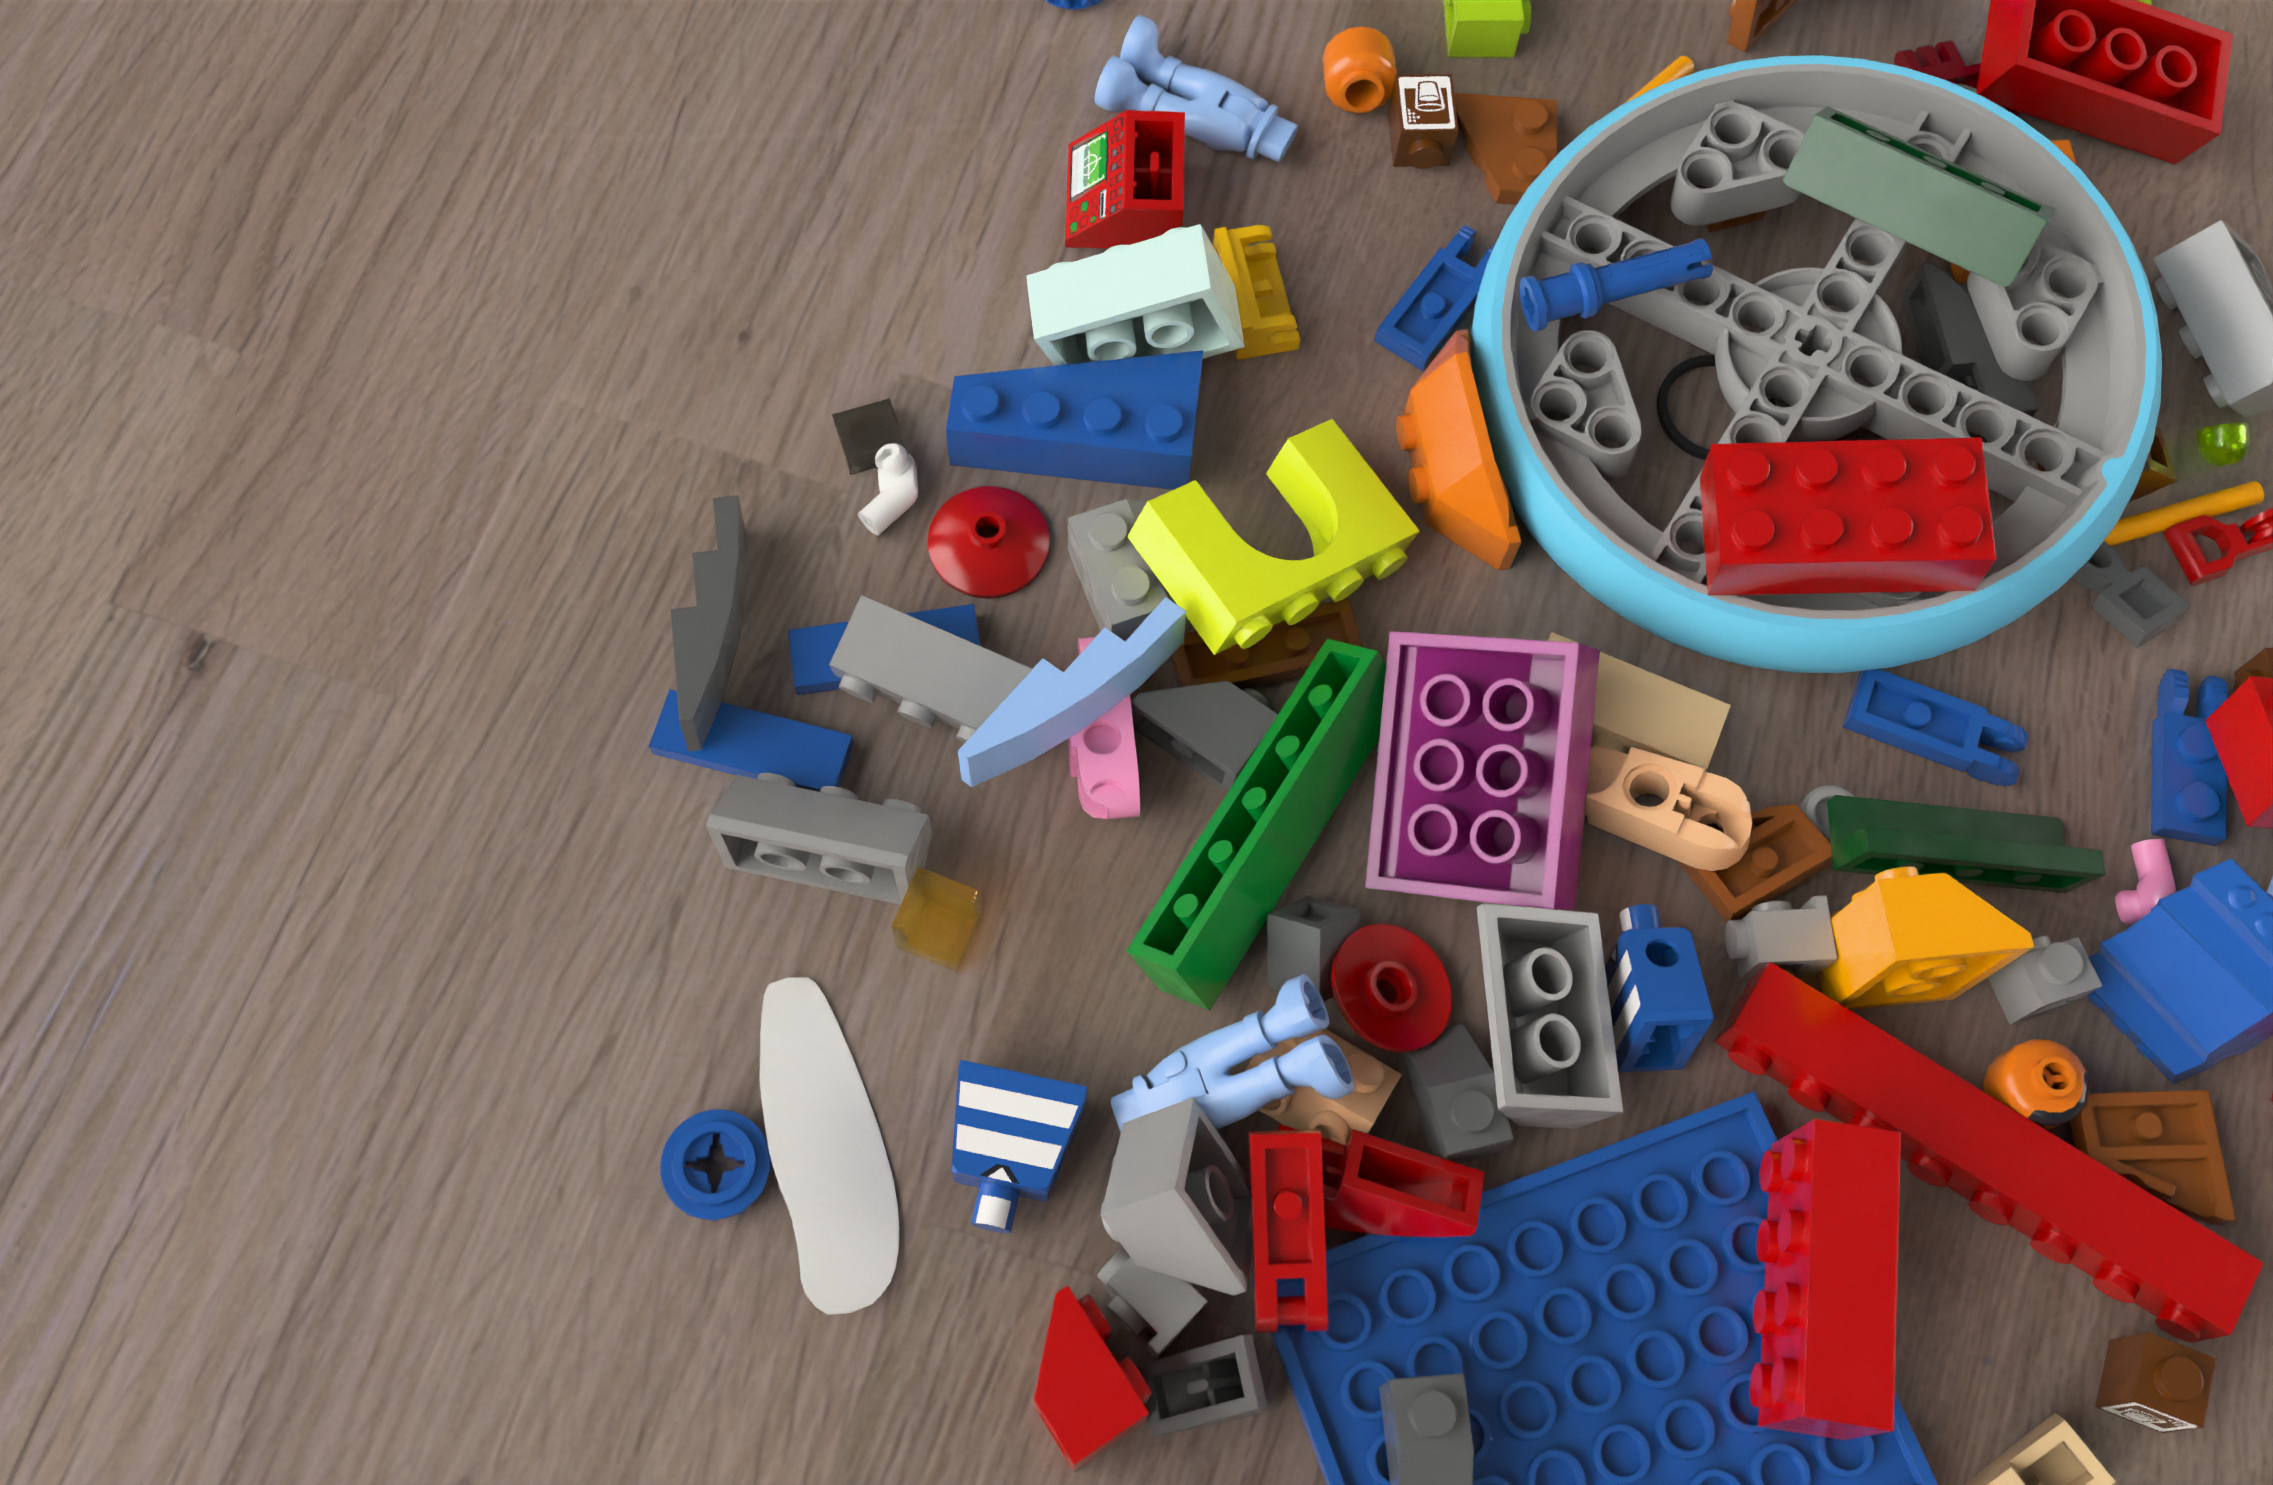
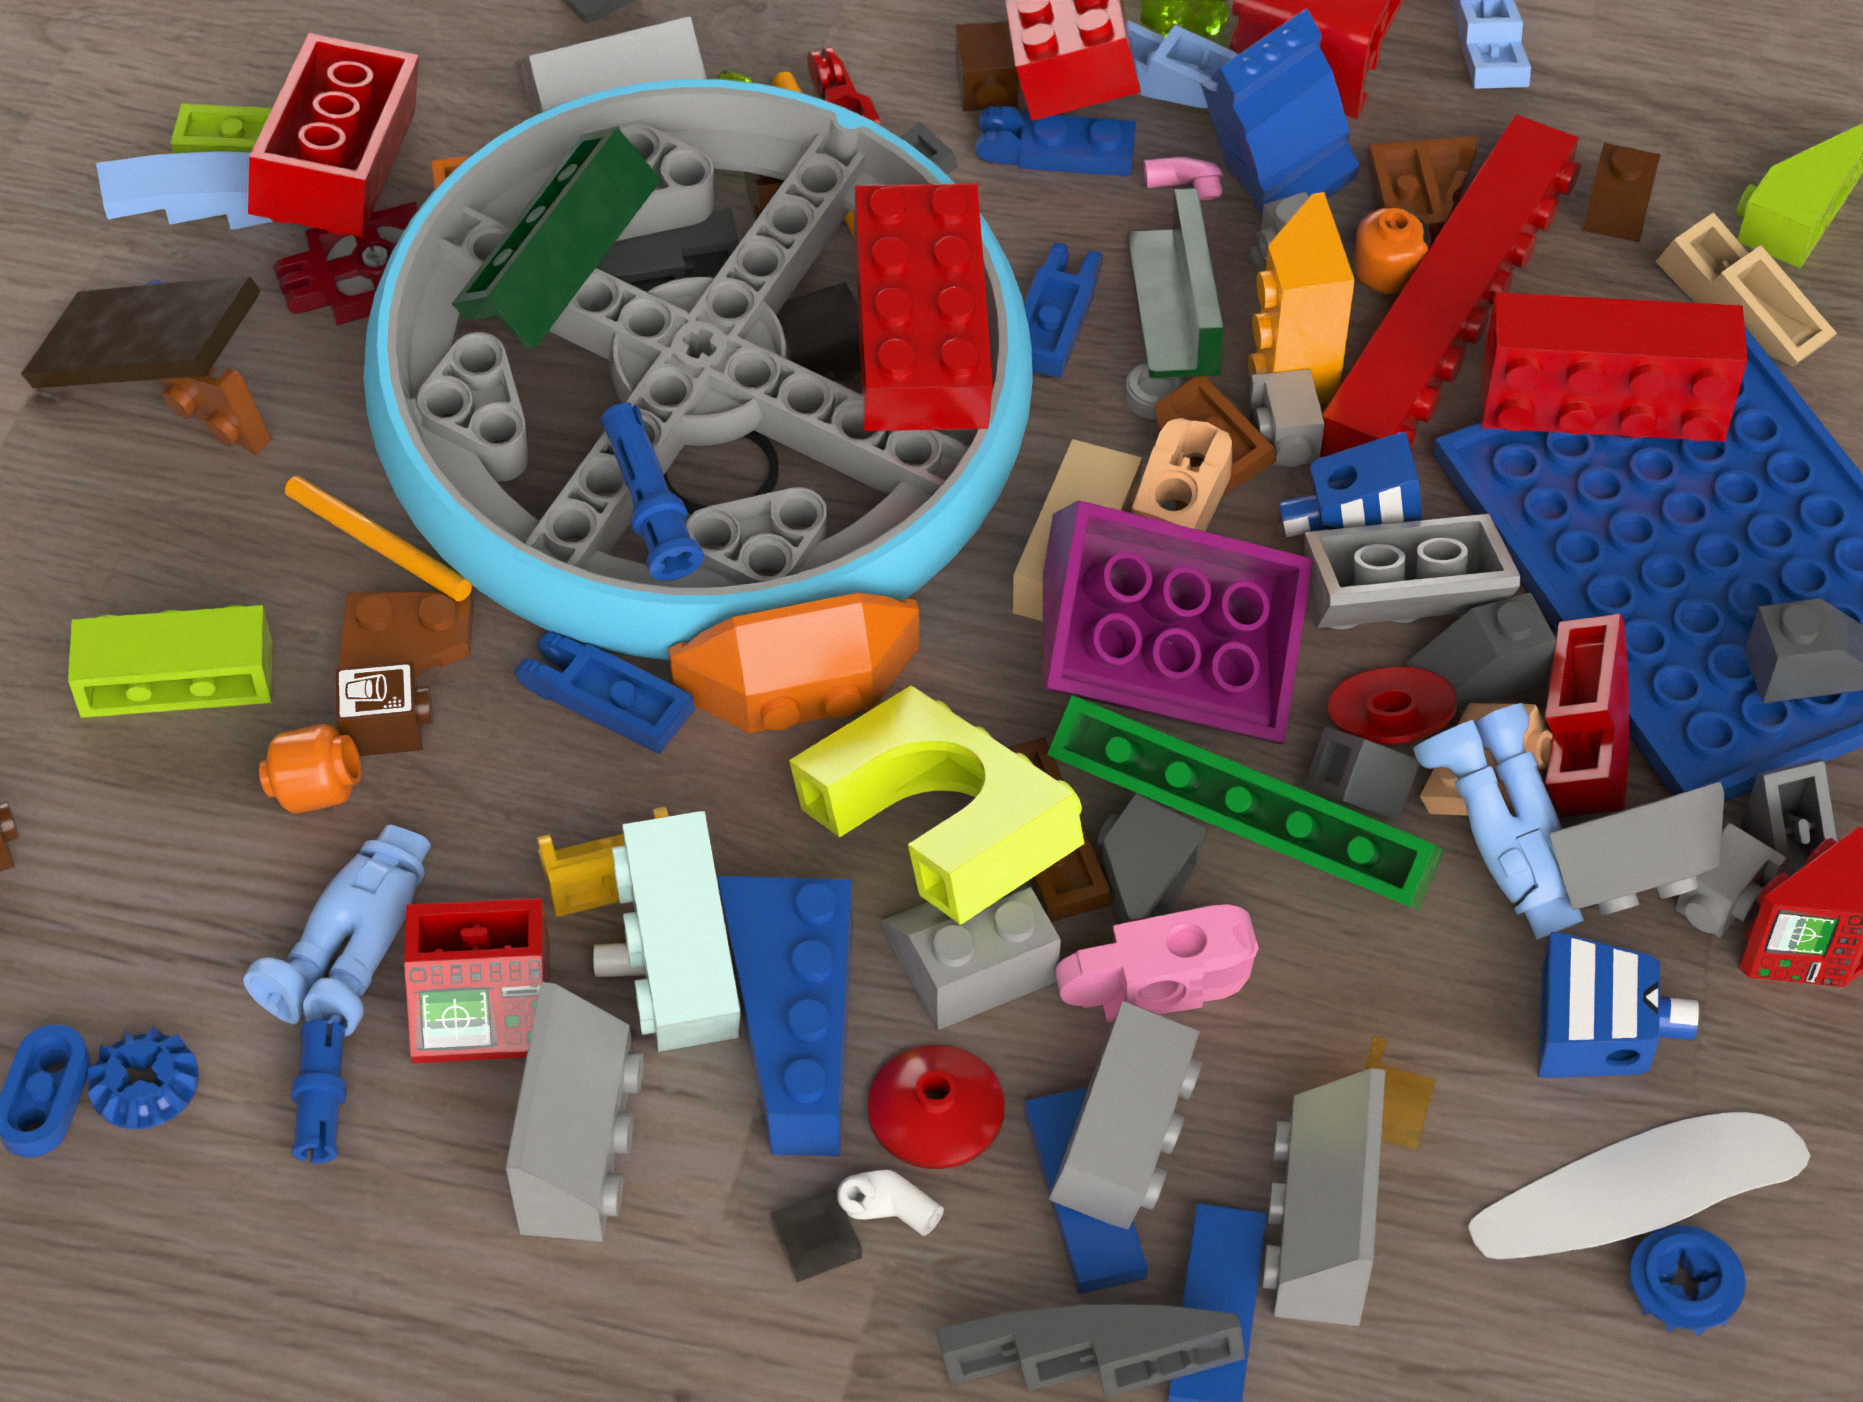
camera: 90 degrees left, 15 degrees down
(975, 233) = (572, 1118): none -> light grey slope
(1041, 81) = (318, 1091): none -> blue pin
(1059, 704) = (1168, 963): light blue slope -> none
(1288, 1228) = (1653, 752): red plate -> none

